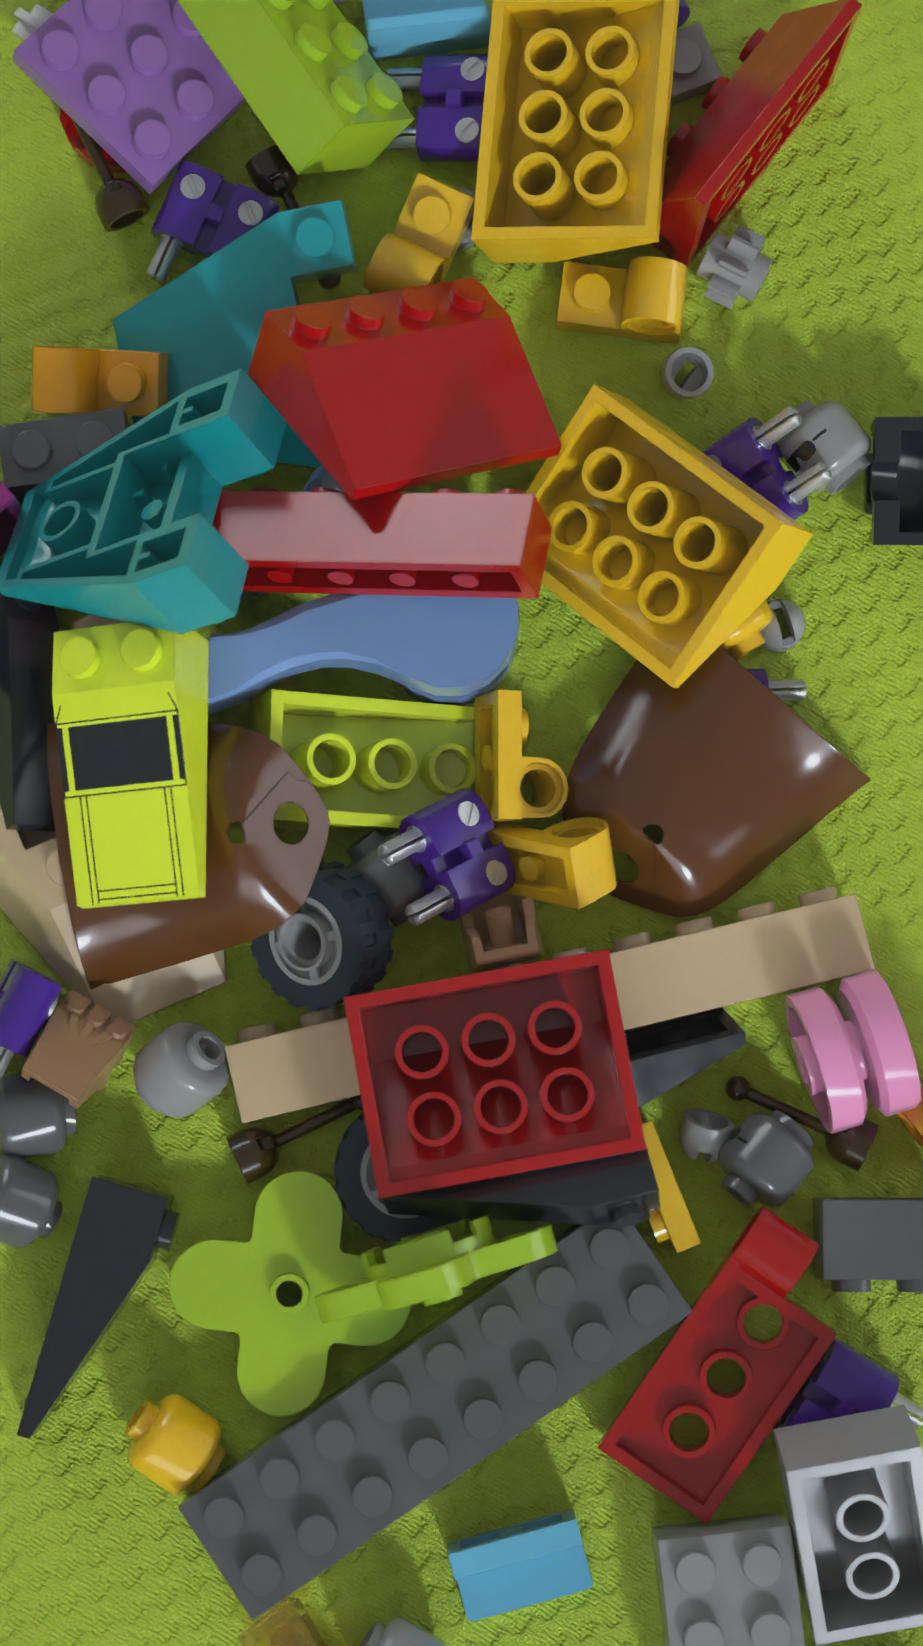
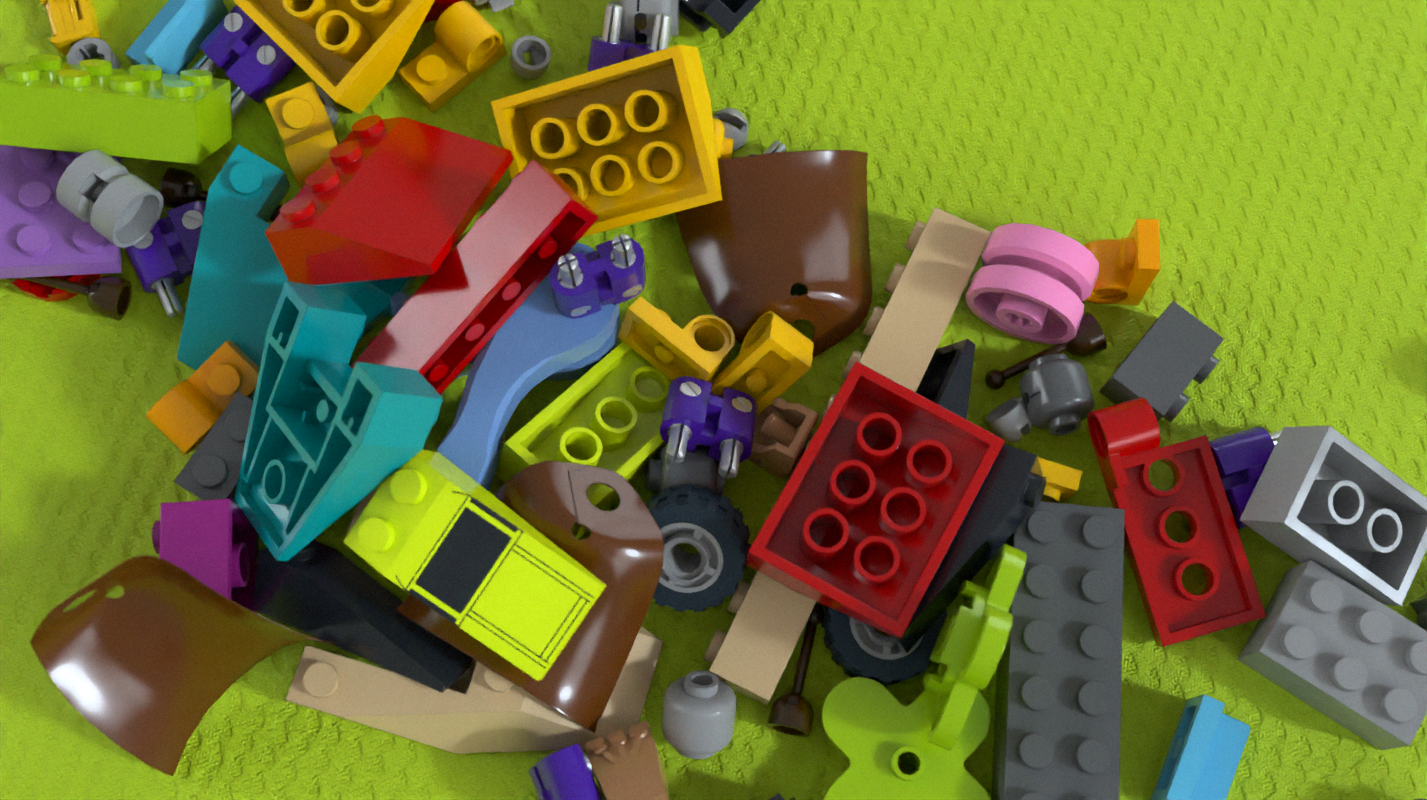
camera: 50 degrees left, 10 degrees down
(197, 122) = (109, 198): none -> light grey wheel
(484, 646) = (606, 277): none -> dark purple piece

